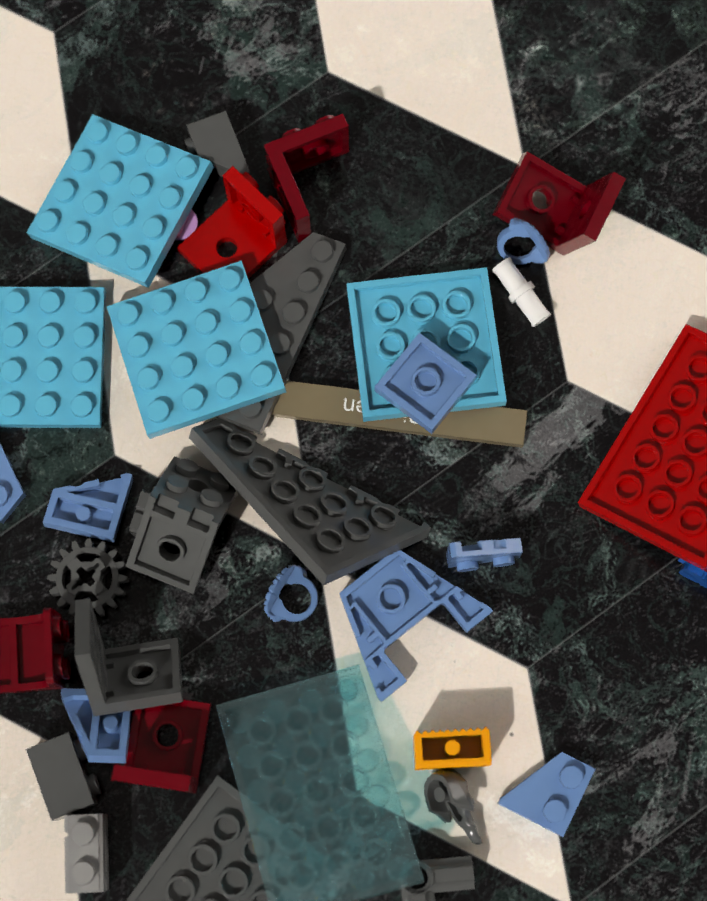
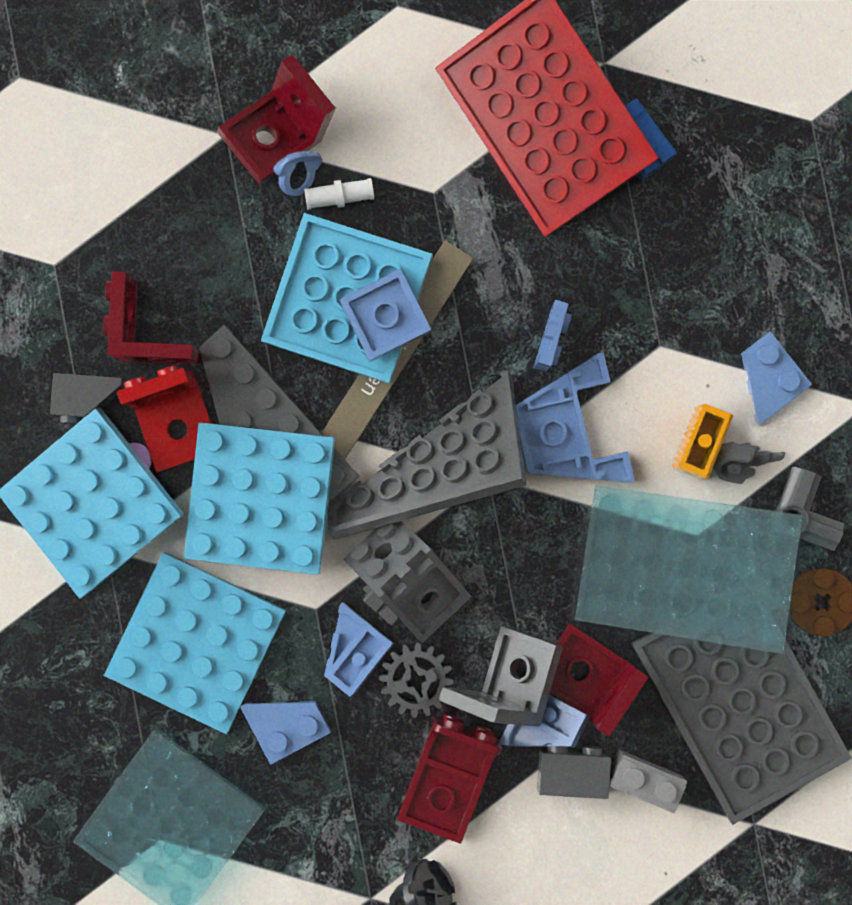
camera: 70 degrees left, 10 degrees up
(274, 606) = (494, 505): medium blue piece -> none

